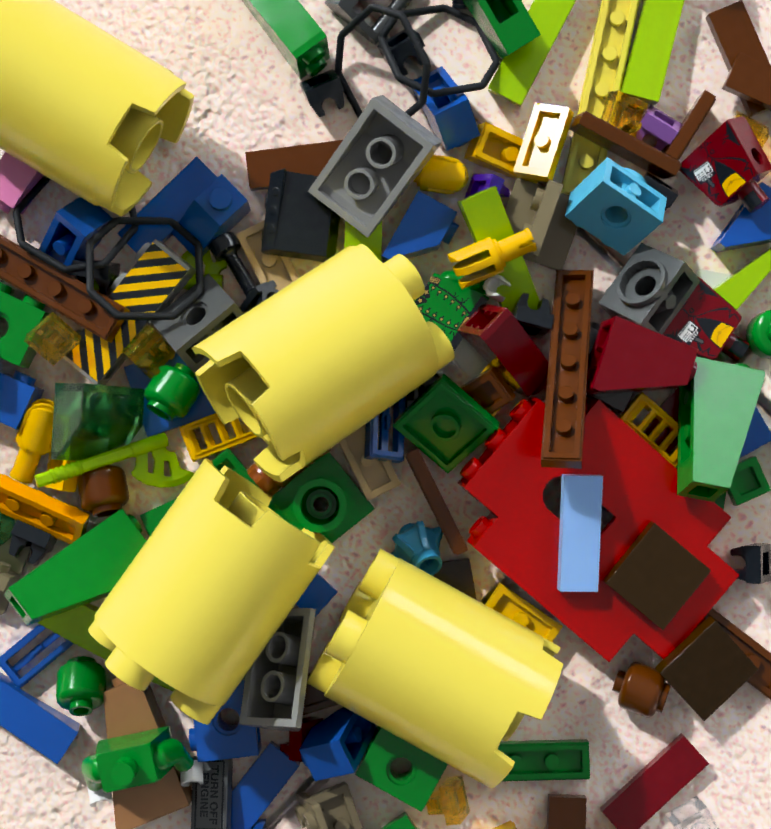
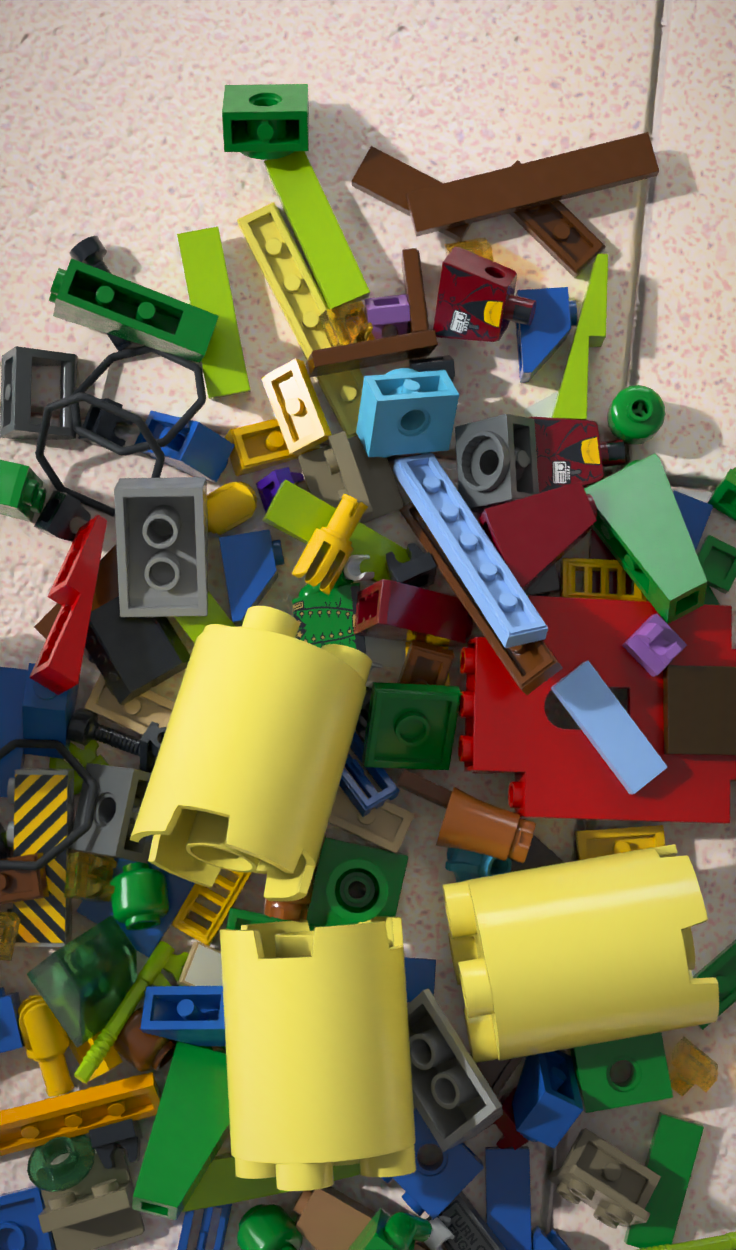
camera: 35 degrees left, 5 degrees down
(140, 494) = (185, 1014): none -> slope
(175, 474) = (202, 967): none -> white tile
(290, 147) = (74, 590): none -> red slope
(440, 533) = (484, 828): none -> dark orange plant
(582, 337) = (470, 551): none -> light blue tile
(656, 502) = (654, 645): none -> medium lavender tile

